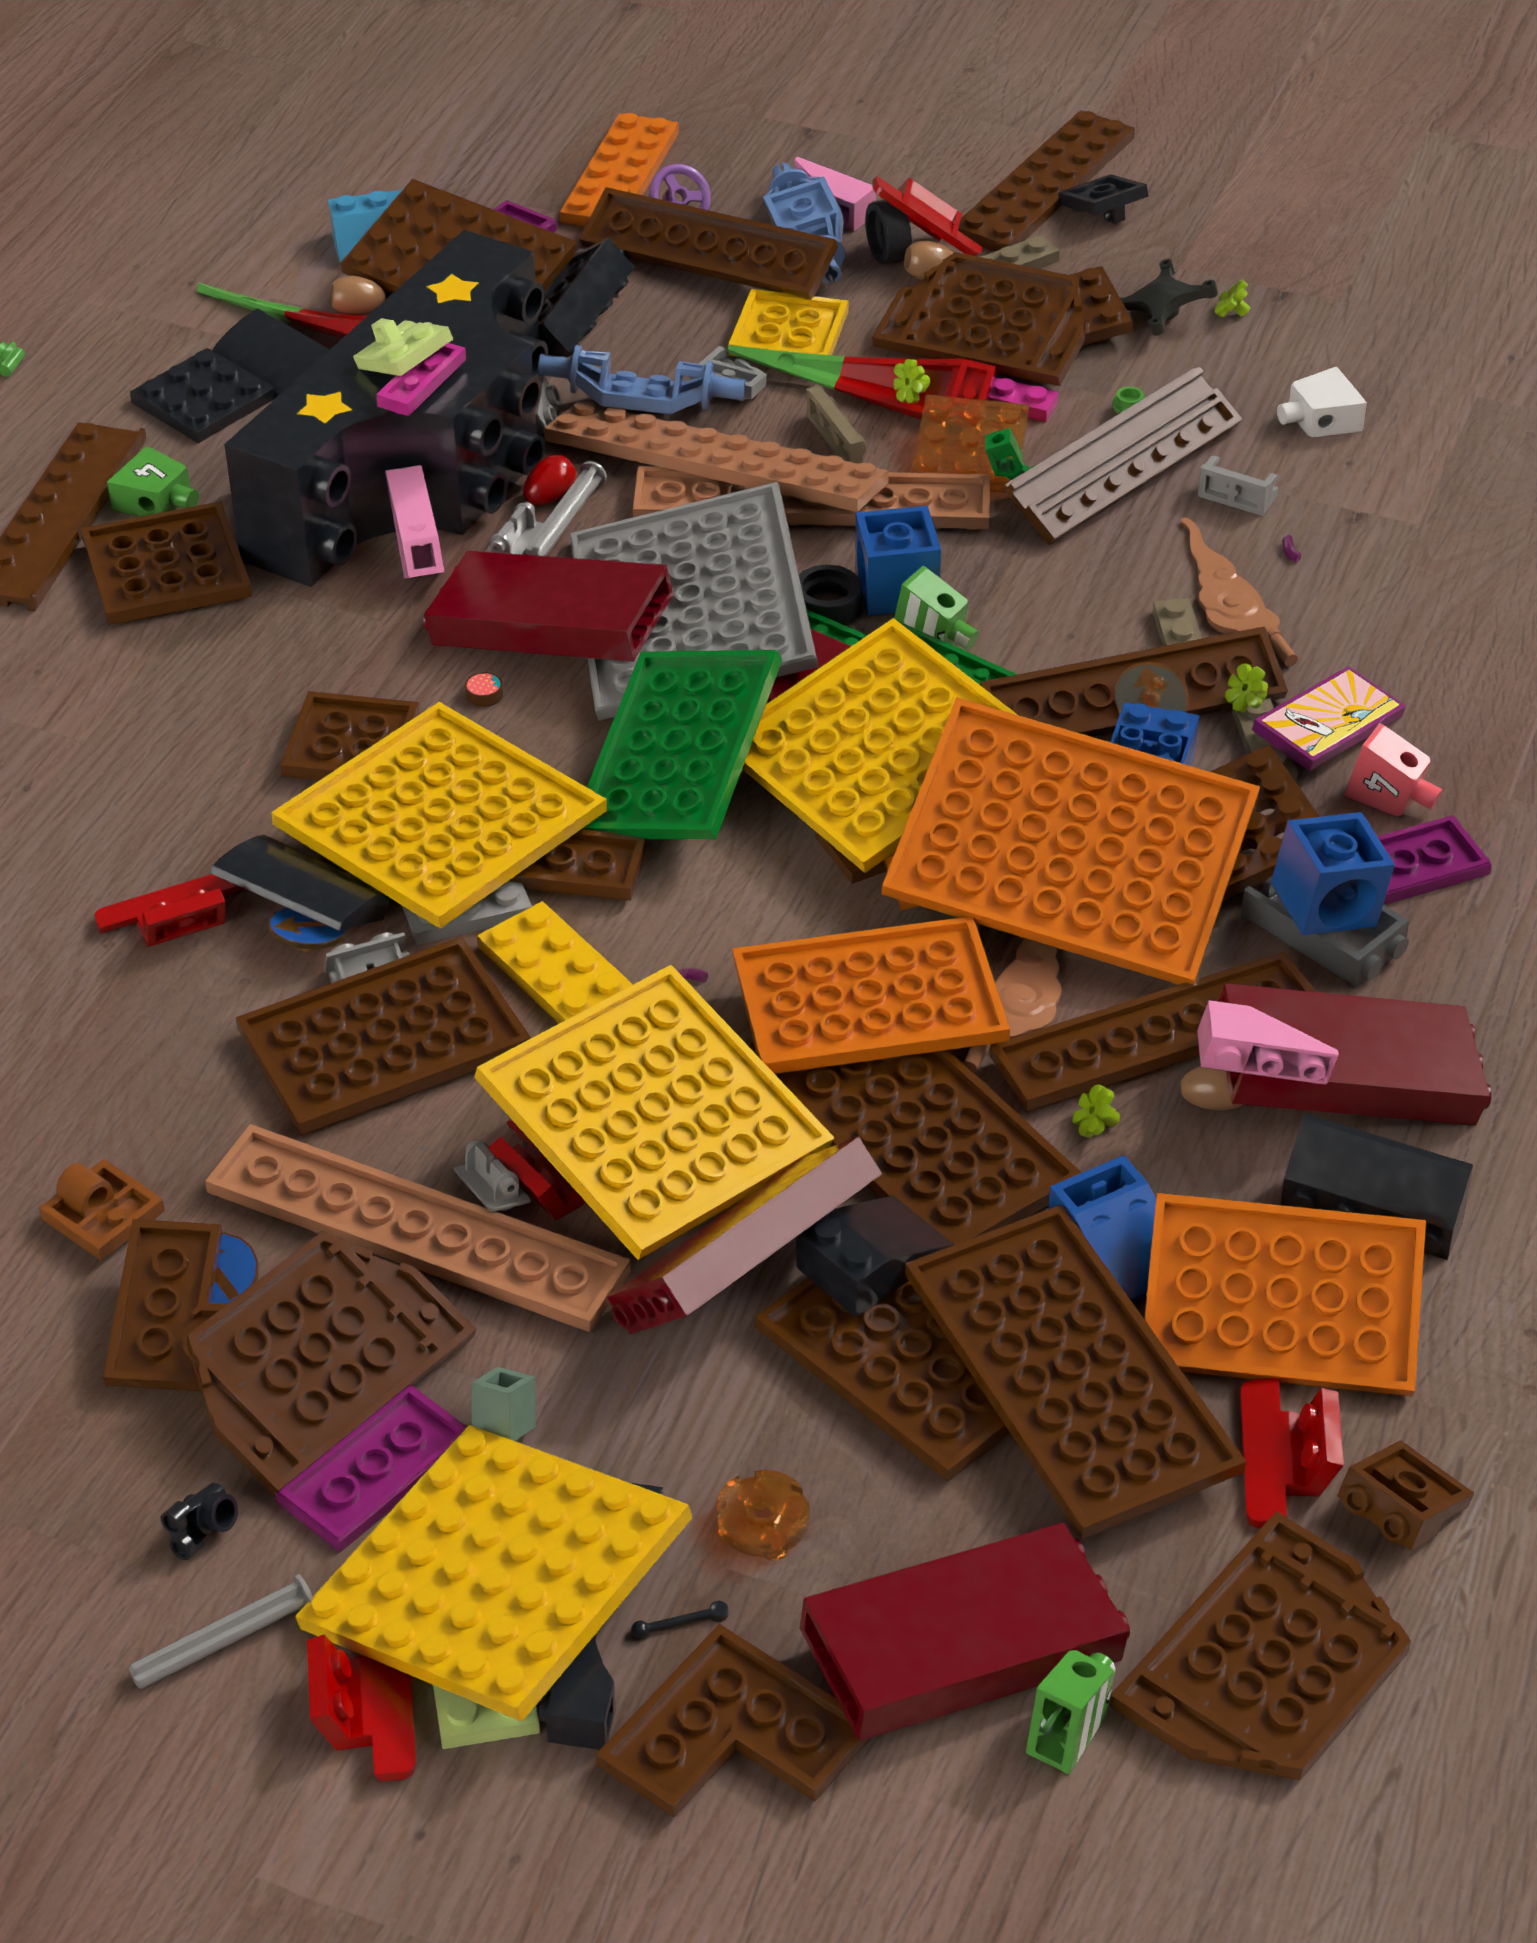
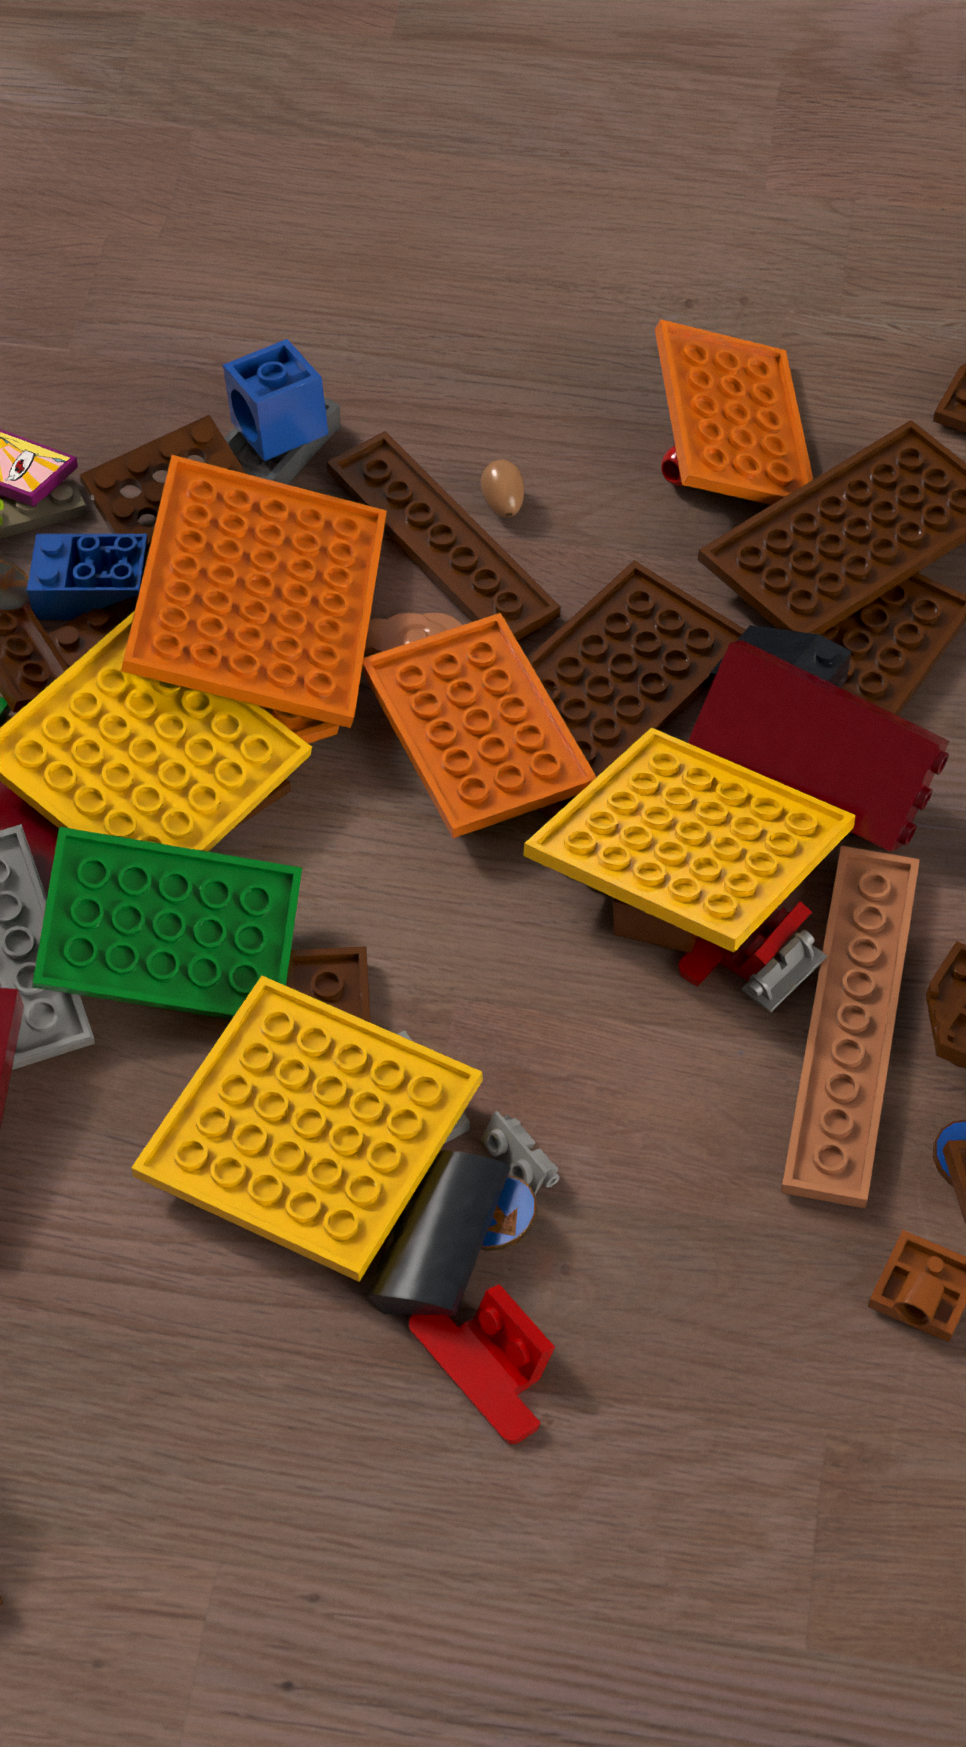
camera: 105 degrees left, 10 degrees up
(338, 729) = (174, 1268): reddish brown plate -> none
(381, 1034) = (620, 1114): reddish brown plate -> none
(484, 689) = (59, 1163): tile -> none
(551, 962) = (479, 993): yellow plate -> none
(694, 975) = (457, 897): magenta leg -> none
(1095, 1112) = (556, 563): lime plant -> none
(1116, 1217) = (678, 526): blue slope -> none
(1257, 1044) = (520, 418): bright pink slope -> none
(1287, 1449) = (859, 412): red plate -> none
(1373, 1175) = (600, 379): black slope -> none
(1391, 774) = (81, 399): coral torso -> none
(1391, 1059) = (459, 400): dark red brick -> none
(1403, 1494) = (888, 347): reddish brown plate -> none
(1432, 858) = (170, 394): magenta tile -> none

